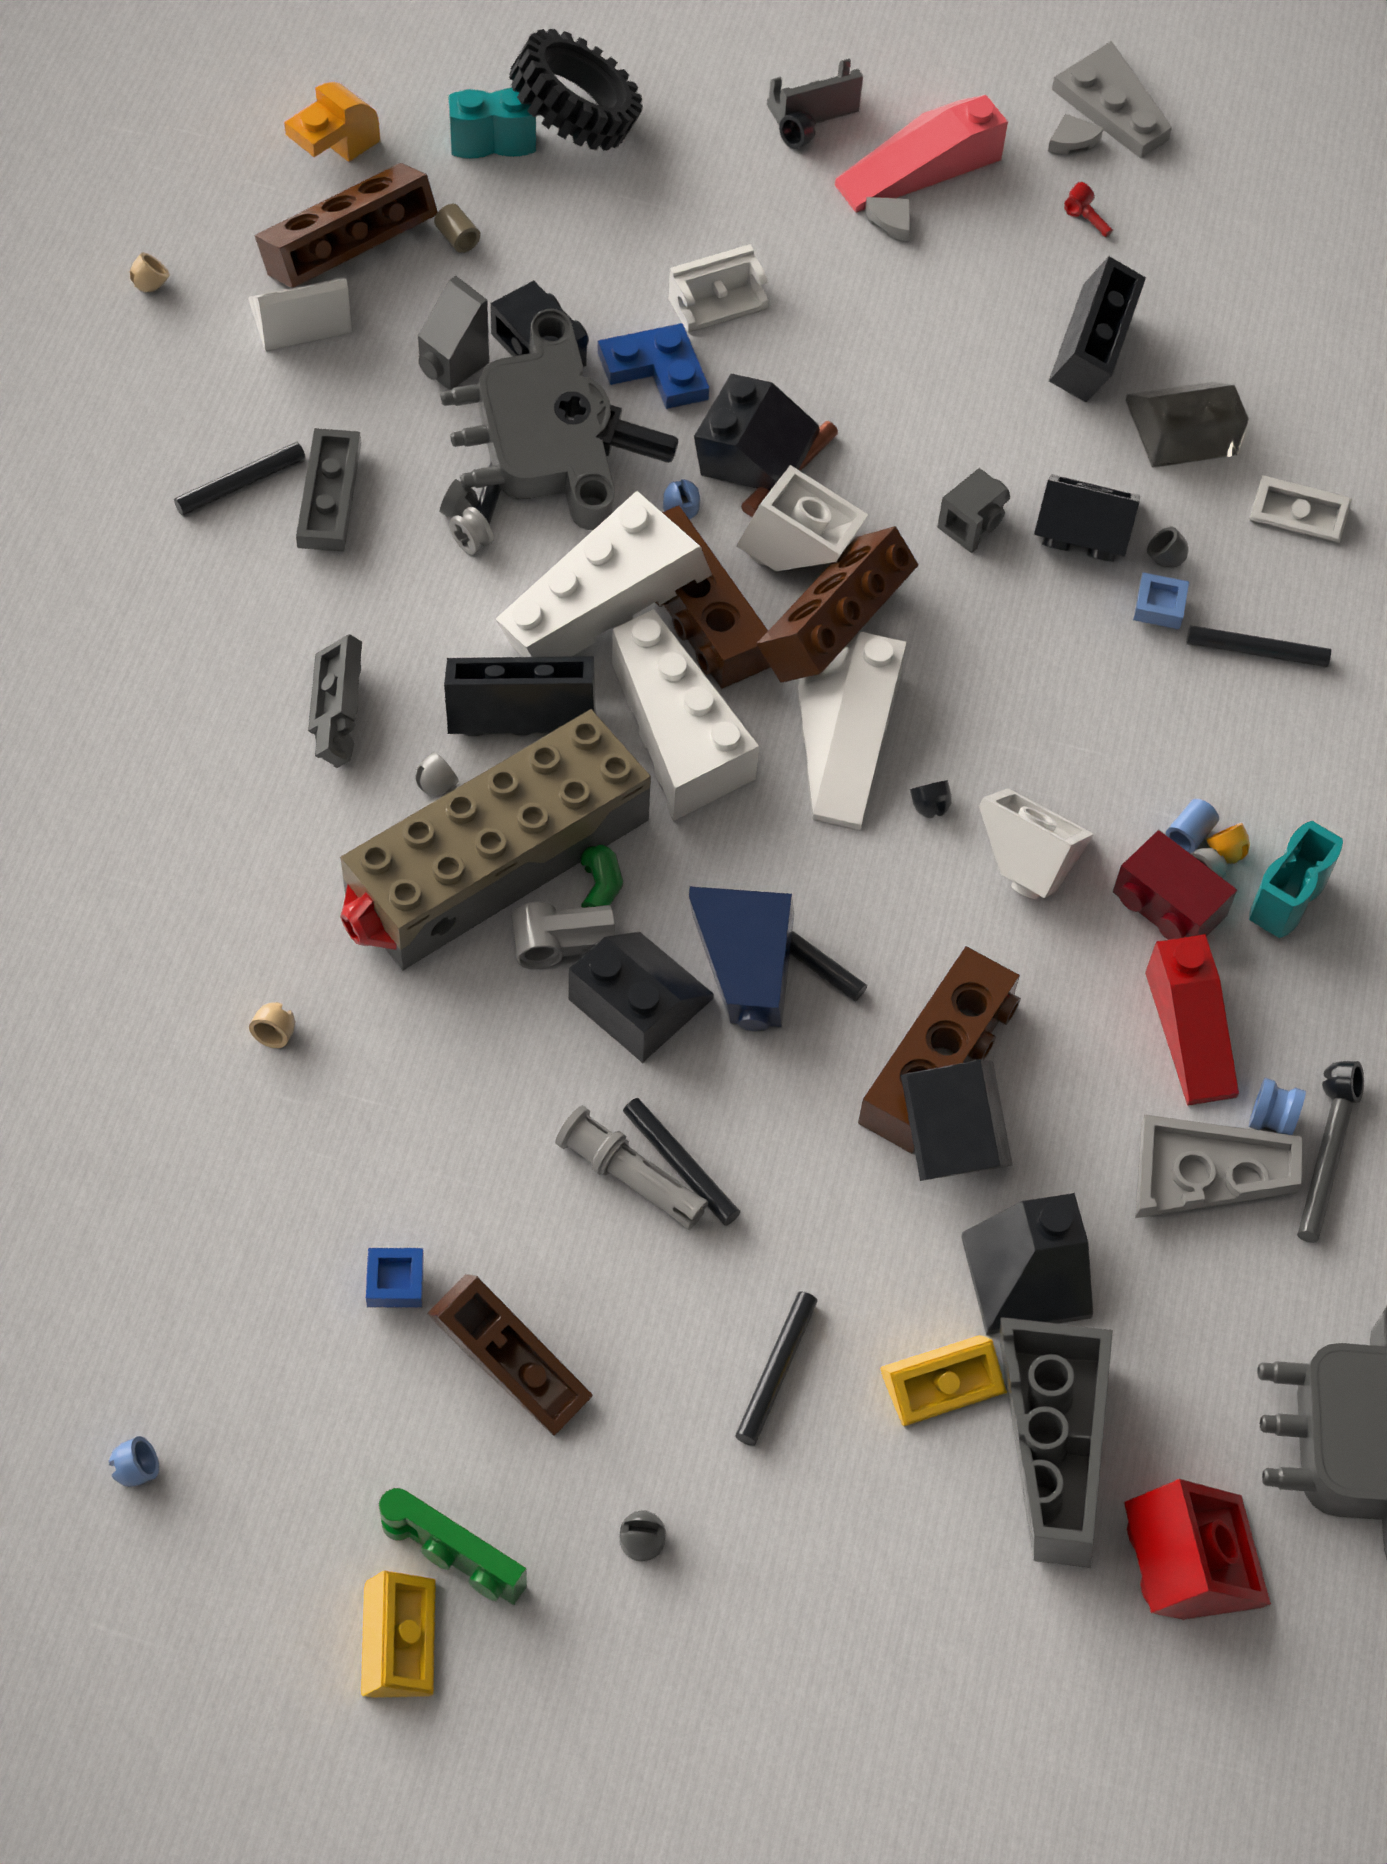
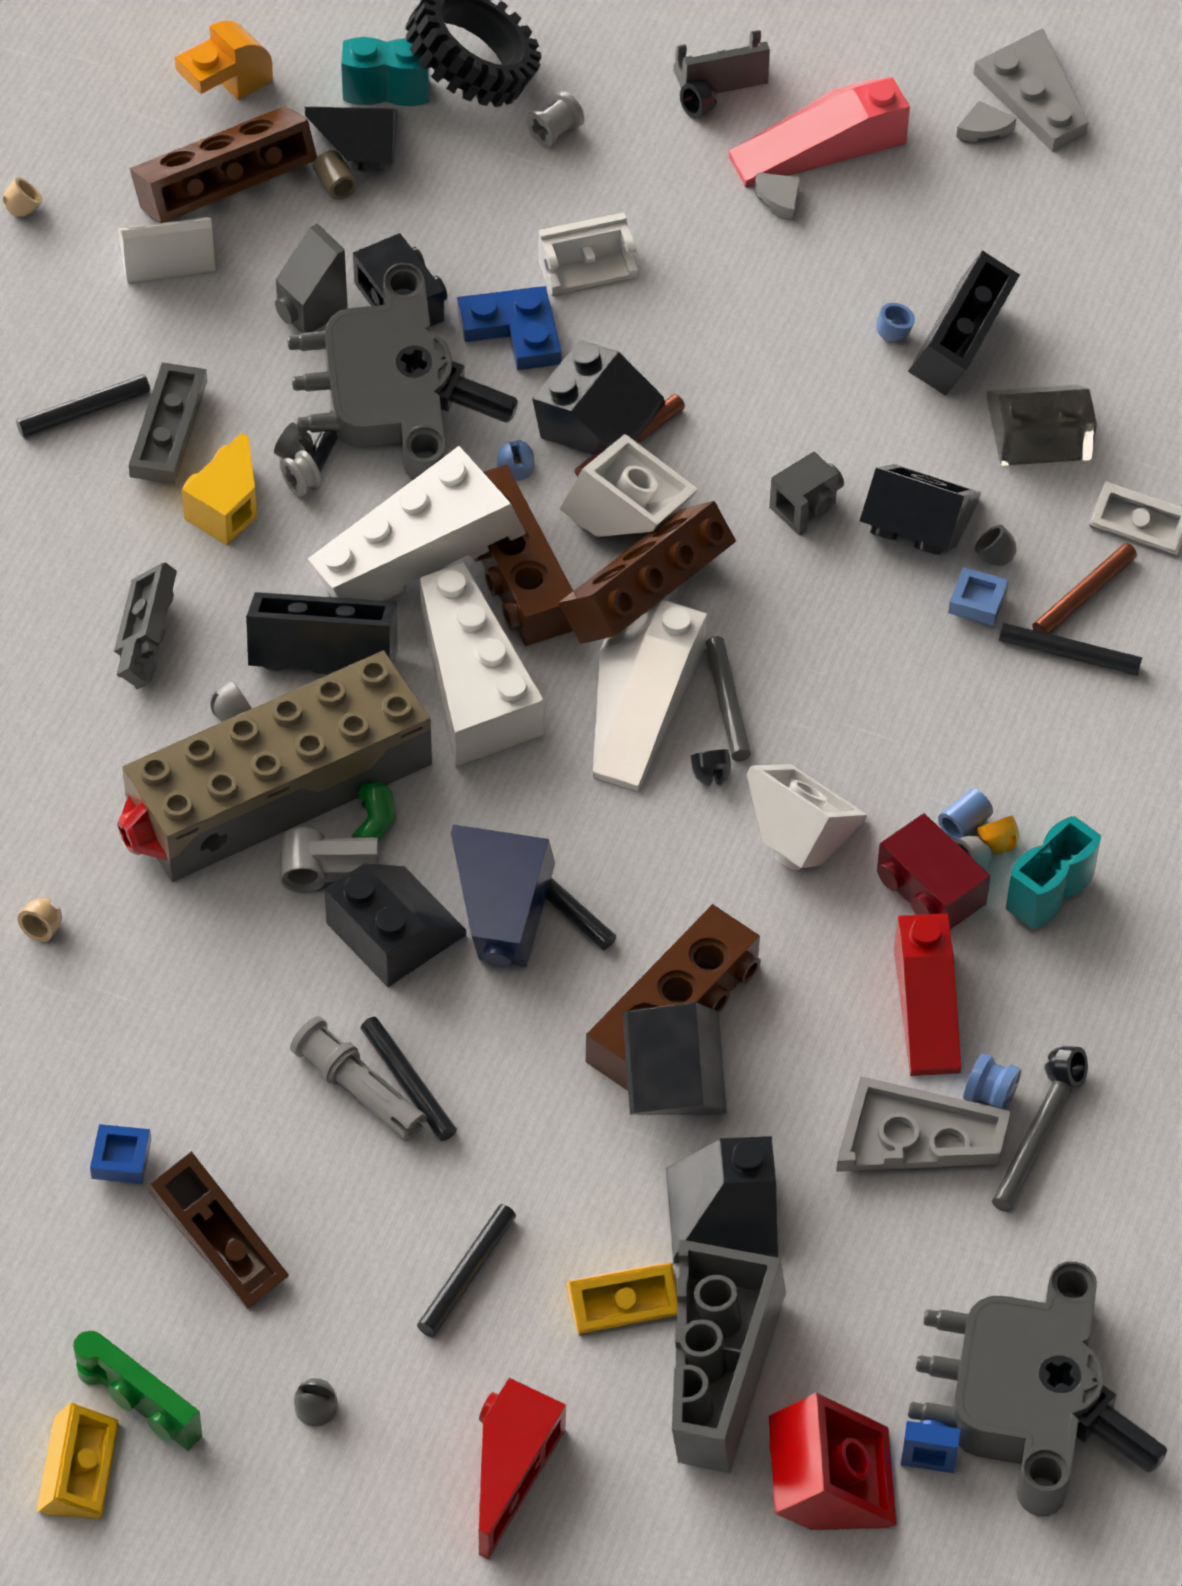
camera: 10 degrees right, 5 degrees down
(396, 557) = (223, 492): none -> yellow slope
(475, 185) = (358, 133): none -> black slope
(664, 158) = (555, 119): none -> light grey bush
(860, 1568) = (517, 1441): none -> red slope
(934, 726) = (727, 698): none -> dark grey bar
(1027, 334) = (901, 322): none -> medium blue hinge
(1079, 204) = (976, 193): red hand -> none
(1260, 584) = (1085, 589): none -> copper bar
(1293, 1514) = (930, 1446): none -> blue plate

